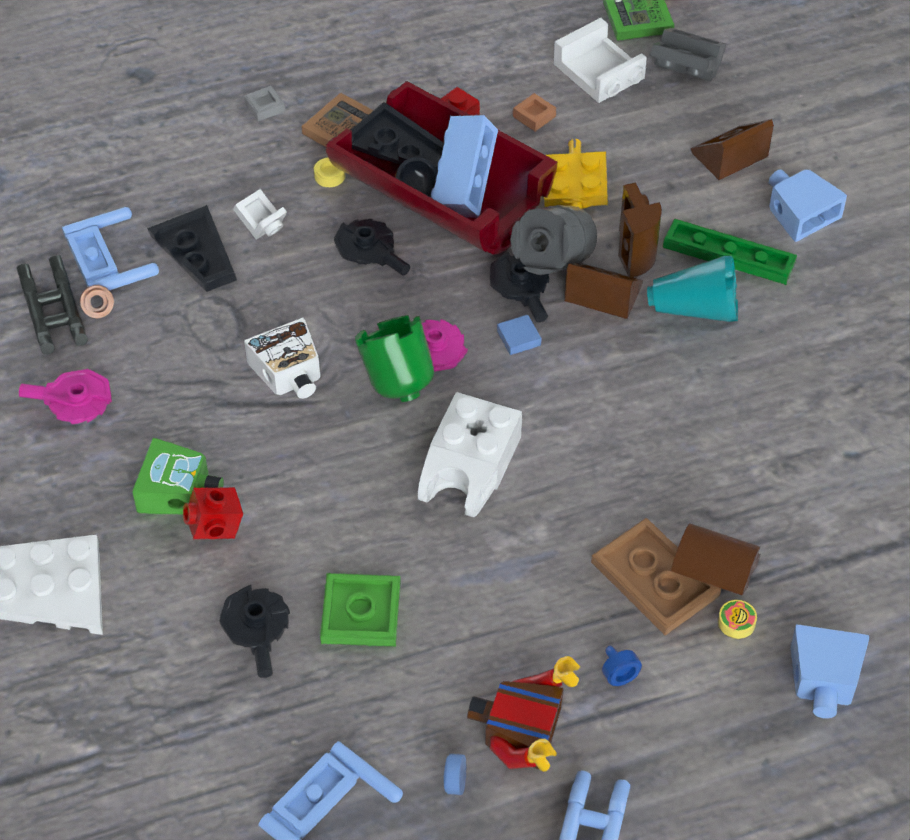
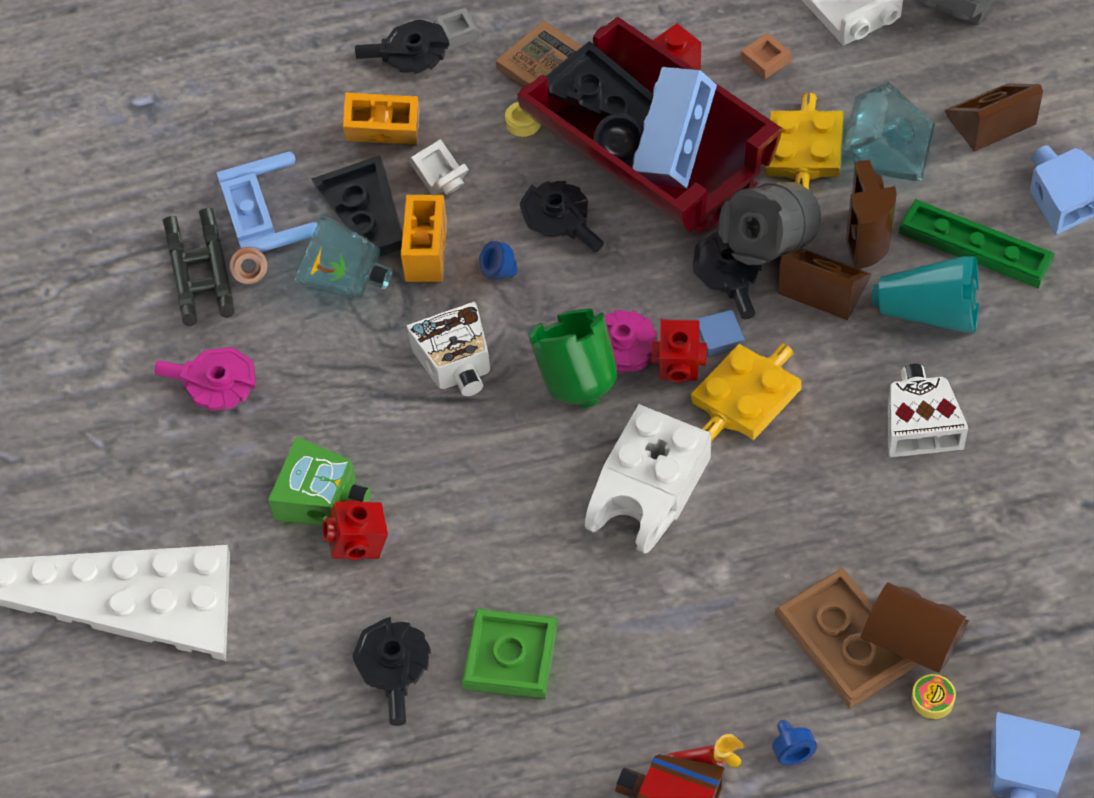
camera: 10 degrees right, 5 degrees up
(180, 292) = (341, 261): none -> clear light blue torso
(206, 175) = (381, 118): none -> light orange brick
(224, 118) = (409, 47): none -> black piece
(253, 269) = (424, 238): none -> light orange brick
(318, 286) = (497, 260): none -> blue tile
(486, 348) = (679, 350): none -> red brick
(547, 379) = (746, 391): none -> yellow plate
(649, 162) = (889, 133): none -> clear light blue slope
(702, 389) = (923, 415): none -> white torso

